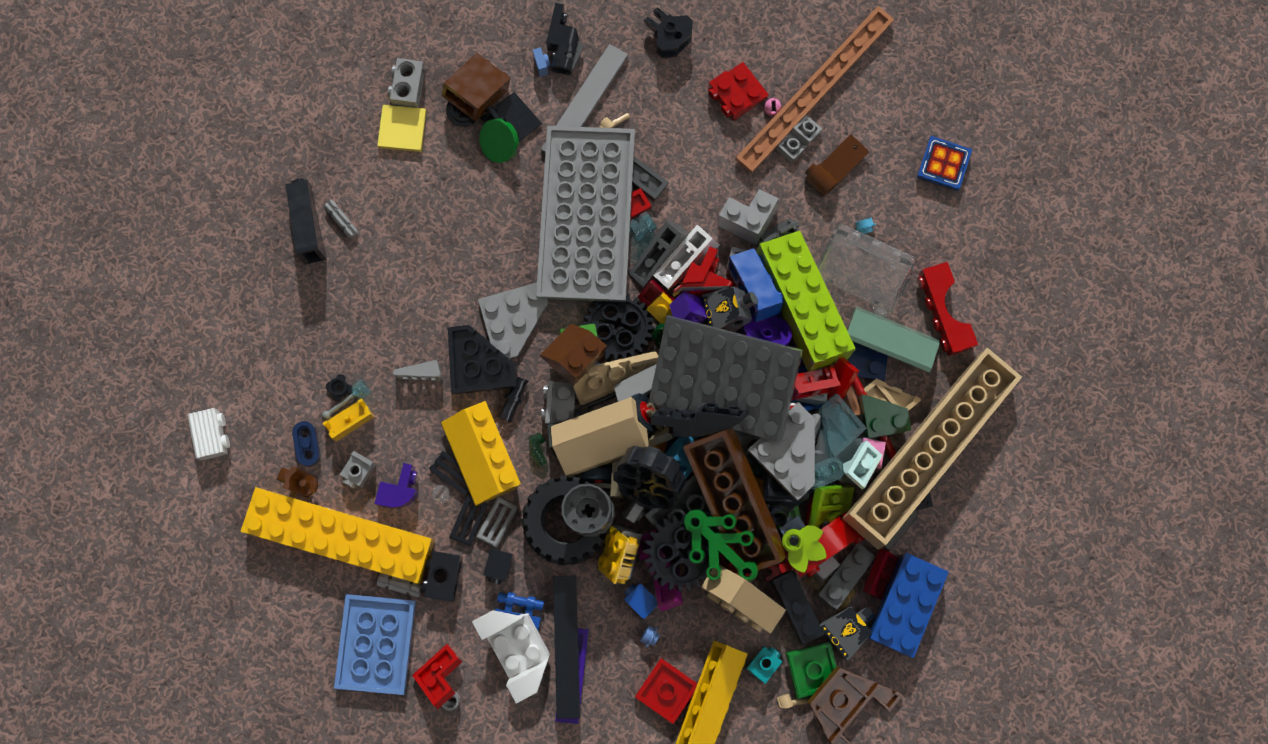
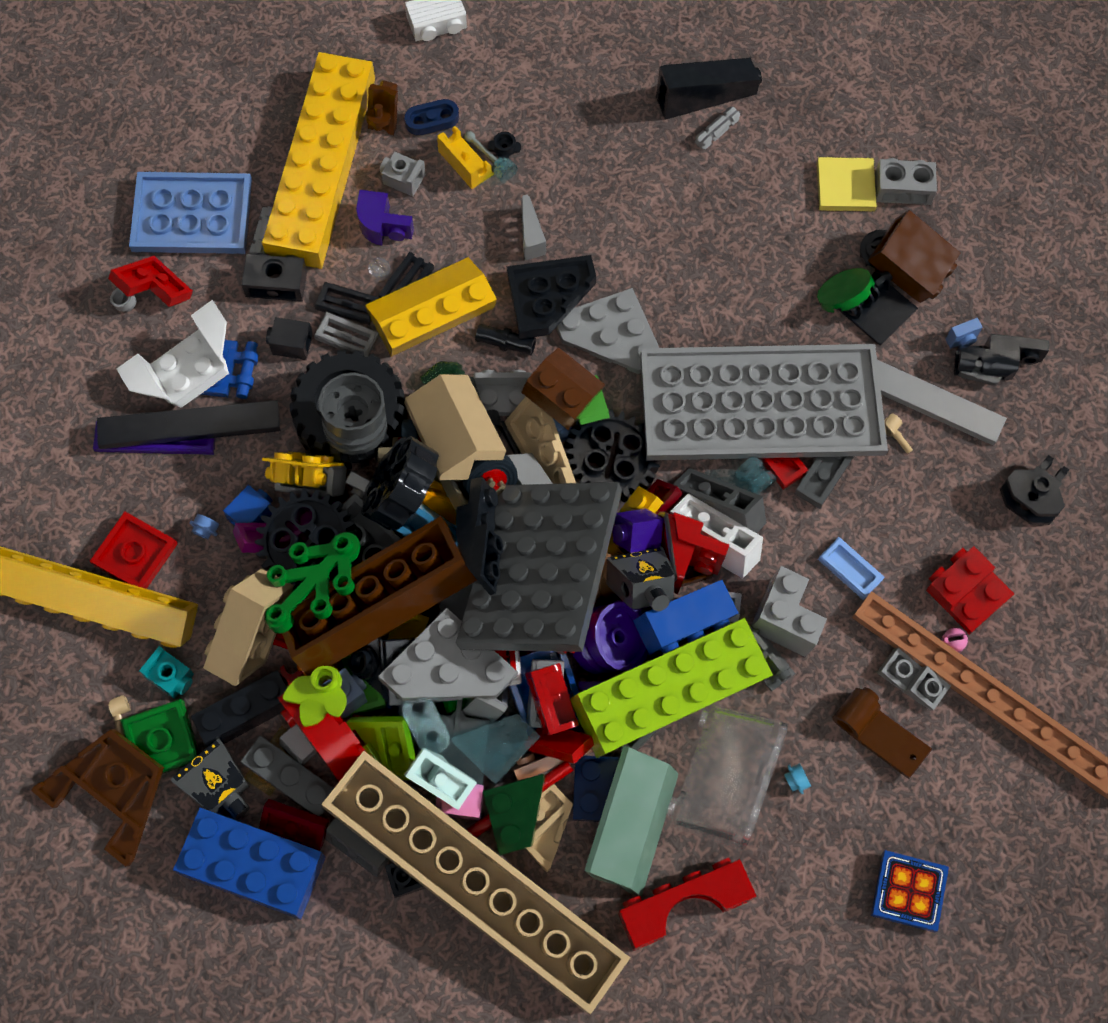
camera: 85 degrees right, 10 degrees down
(714, 169) = (851, 568): none -> light blue tile

